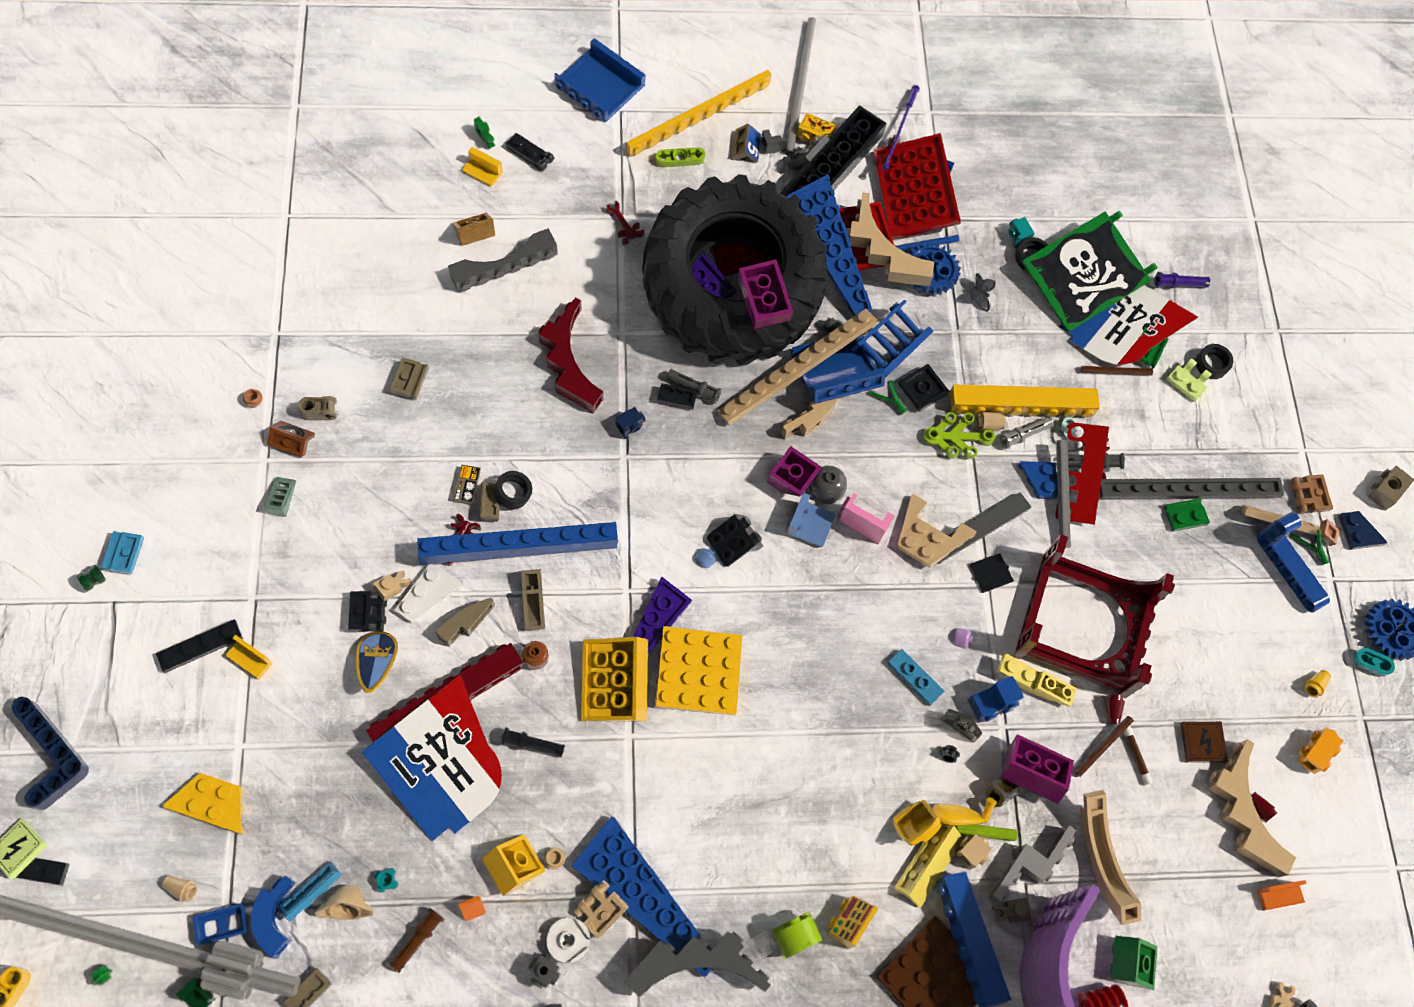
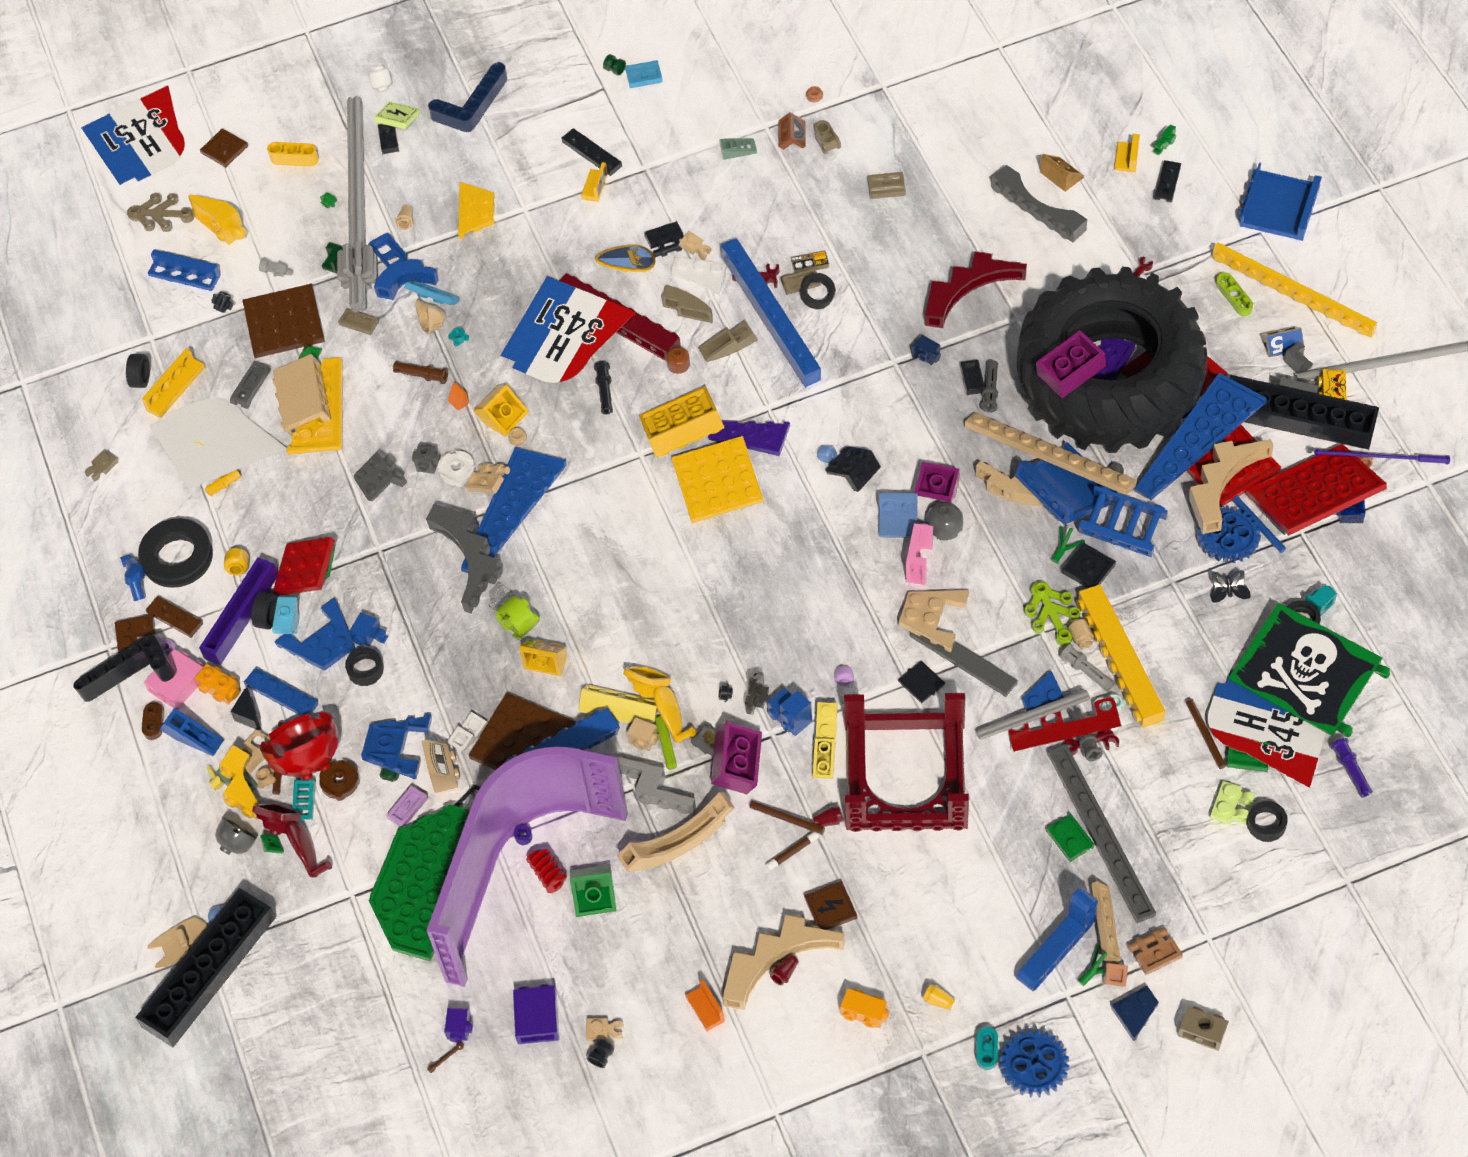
camera: 85 degrees right, 10 degrees down
(915, 677) = (787, 647): dark azure plate -> none

